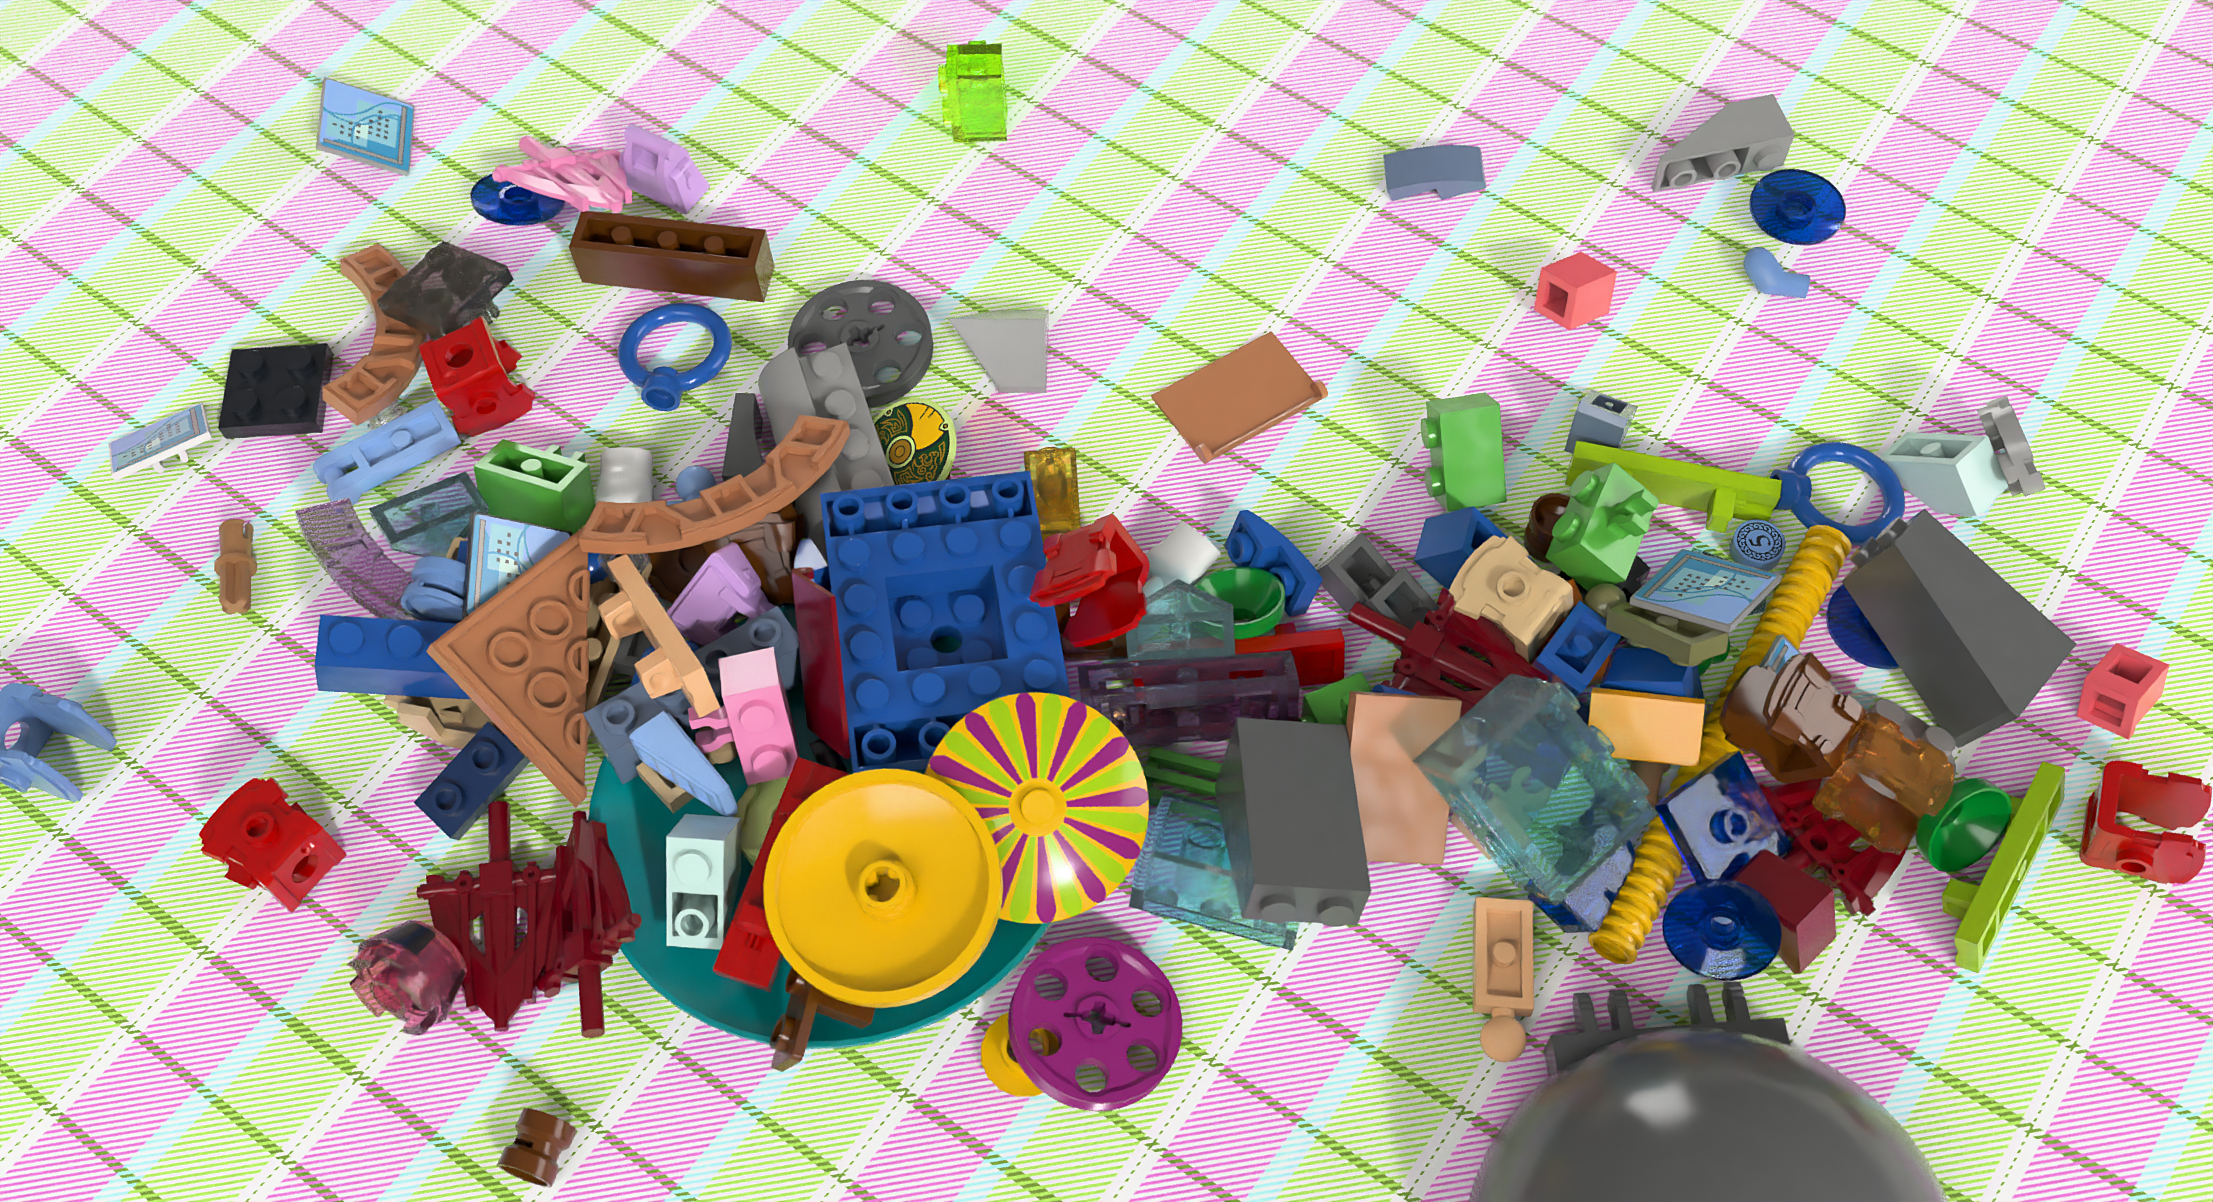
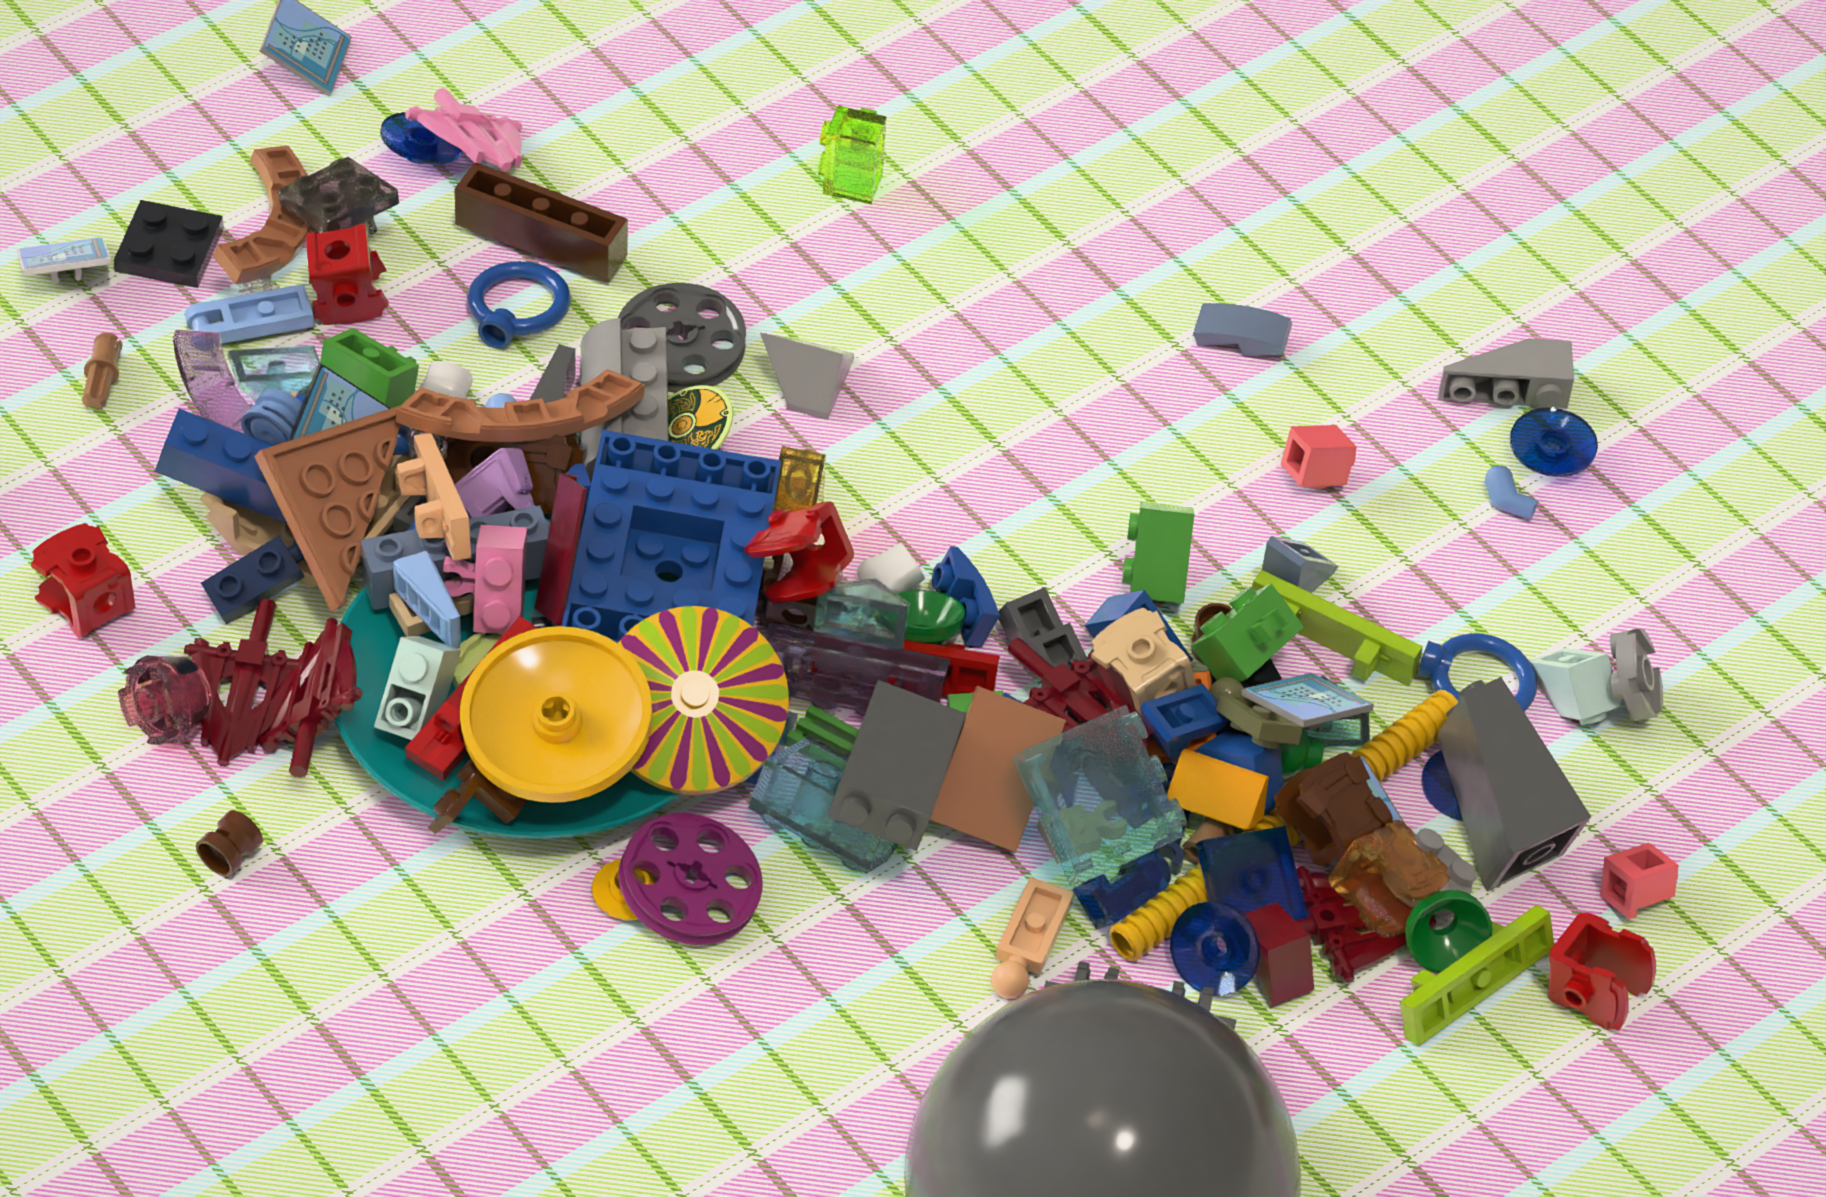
camera: 10 degrees right, 10 degrees down
(661, 170) = (554, 148): lavender piece -> none
(1238, 397) = (993, 466): nougat piece -> none
(1757, 545) = (1390, 697): medium blue tile -> none

